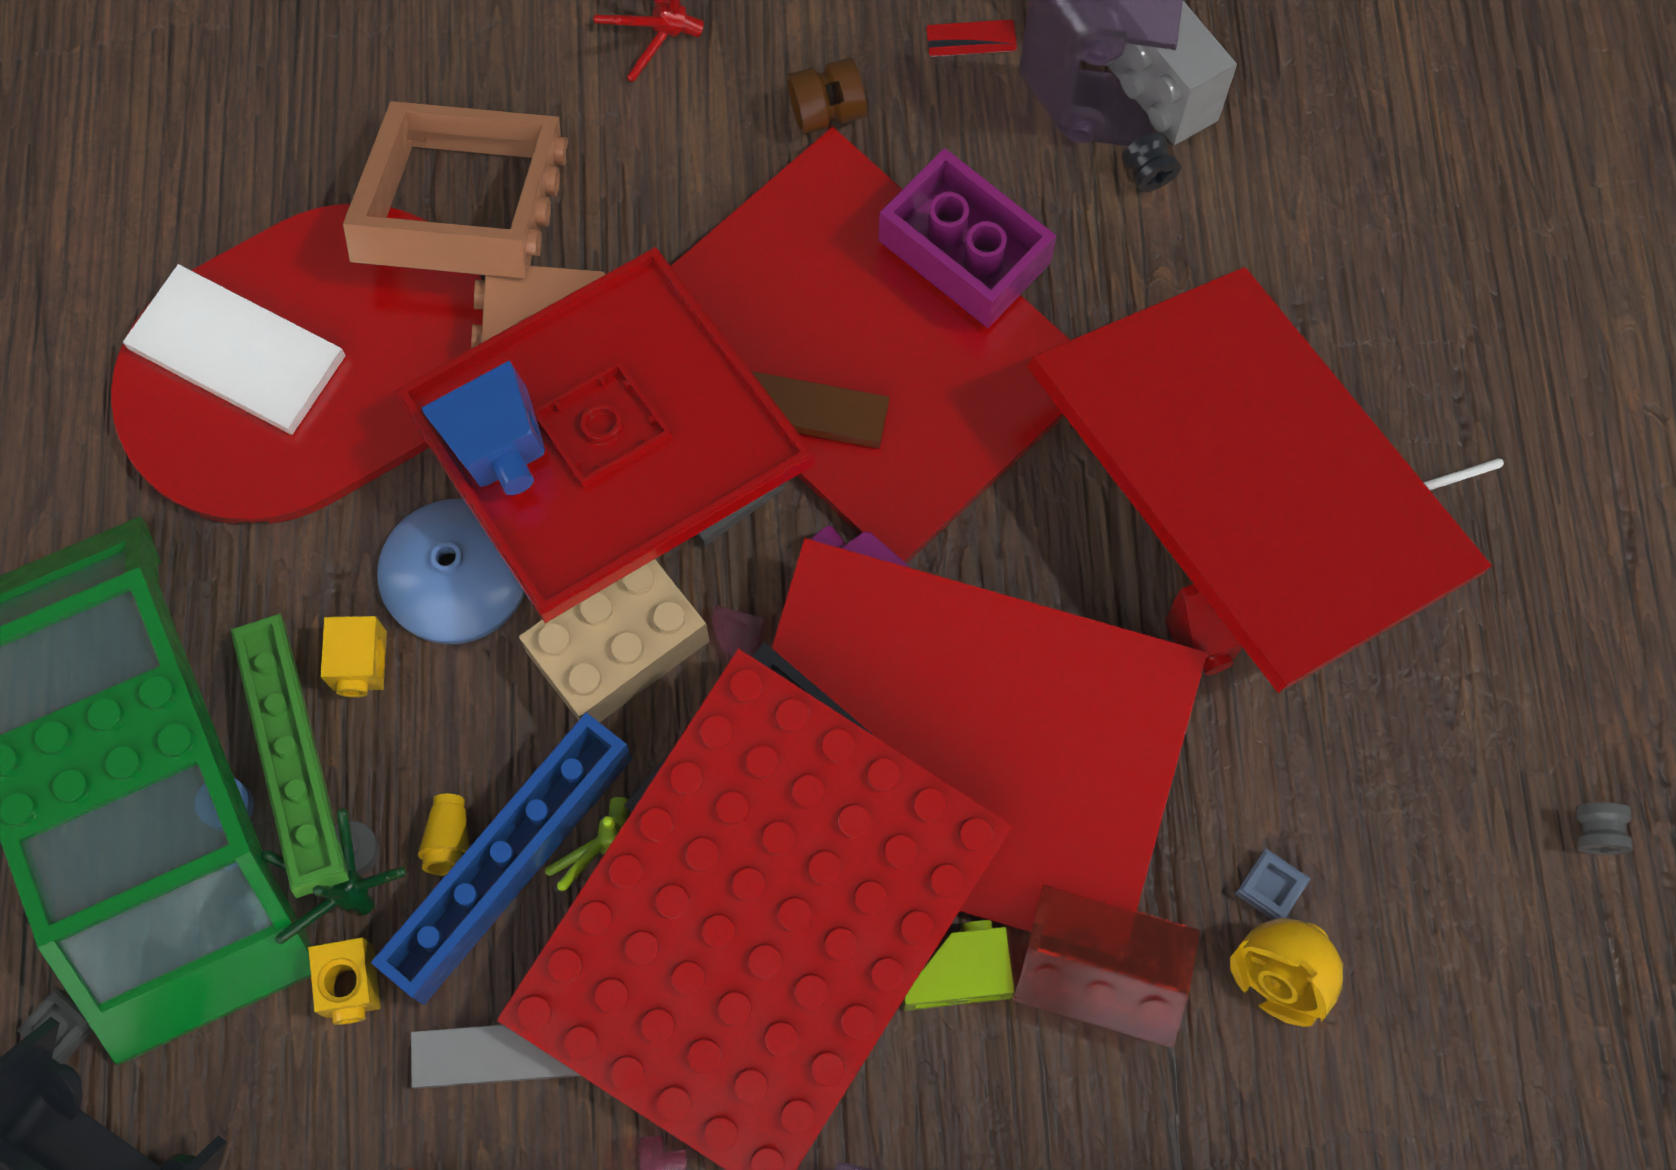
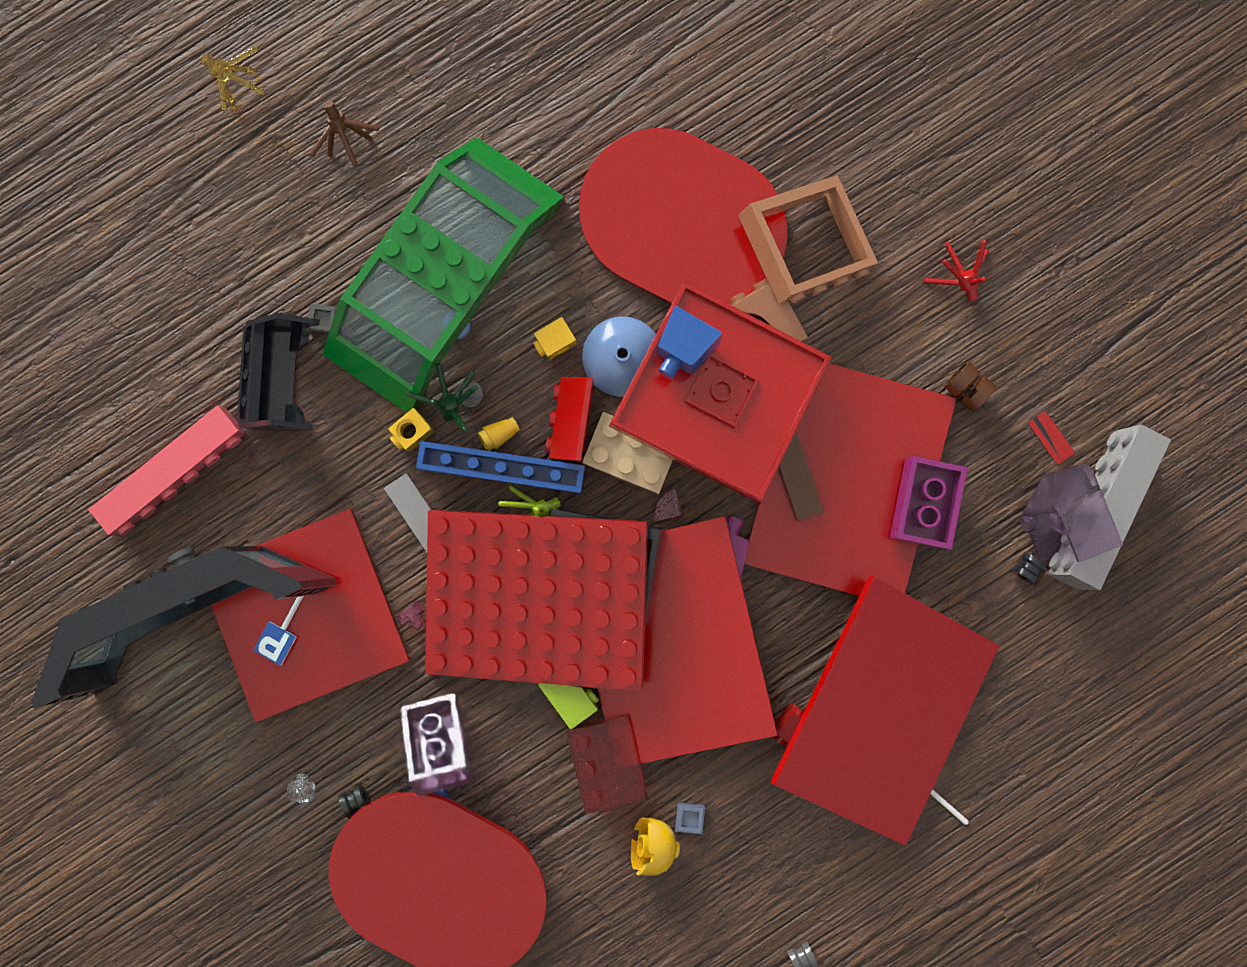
camera: 60 degrees right, 15 degrees up
(234, 349) = (667, 185): white tile -> none
(289, 756) = (491, 342): bright green tile -> none
(496, 695) = (570, 419): none -> red slope

